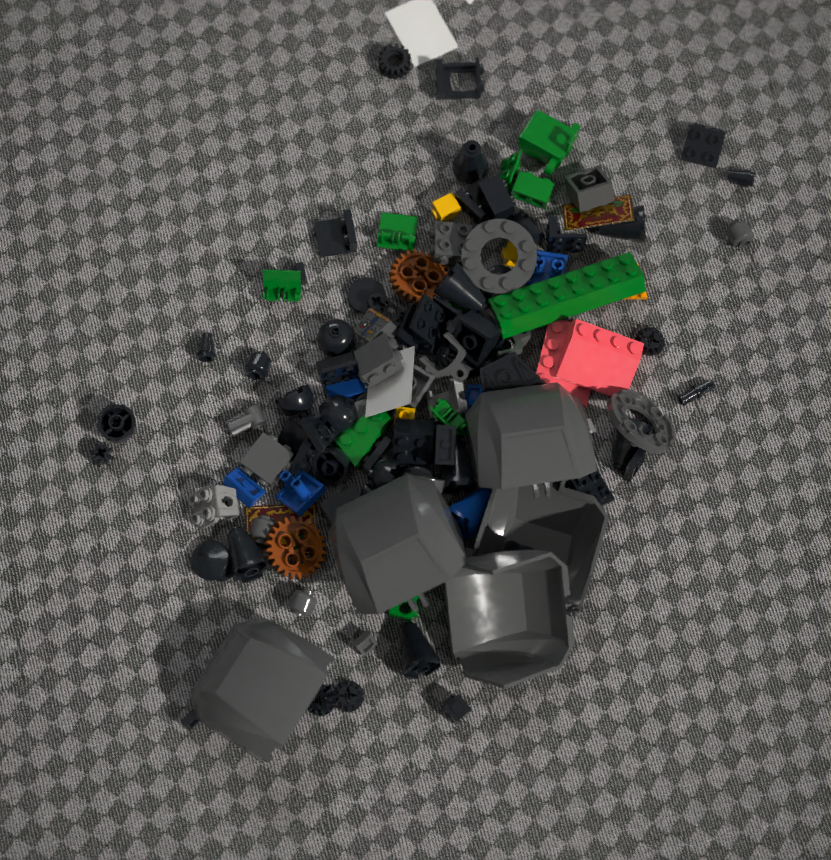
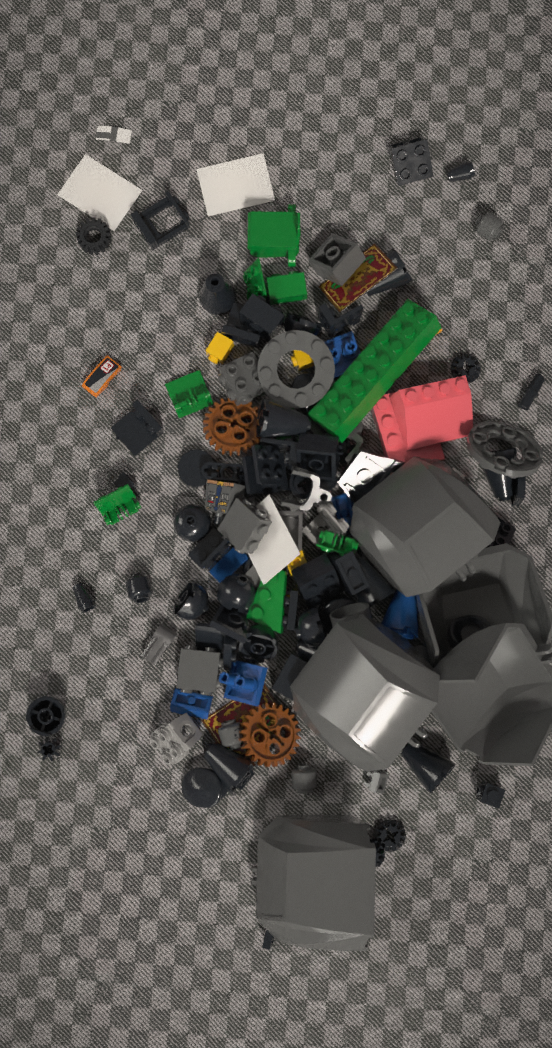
camera: 25 degrees left, 10 degrees up
(331, 176) = (101, 376): none -> slope
(540, 84) = (235, 184): none -> white sticker

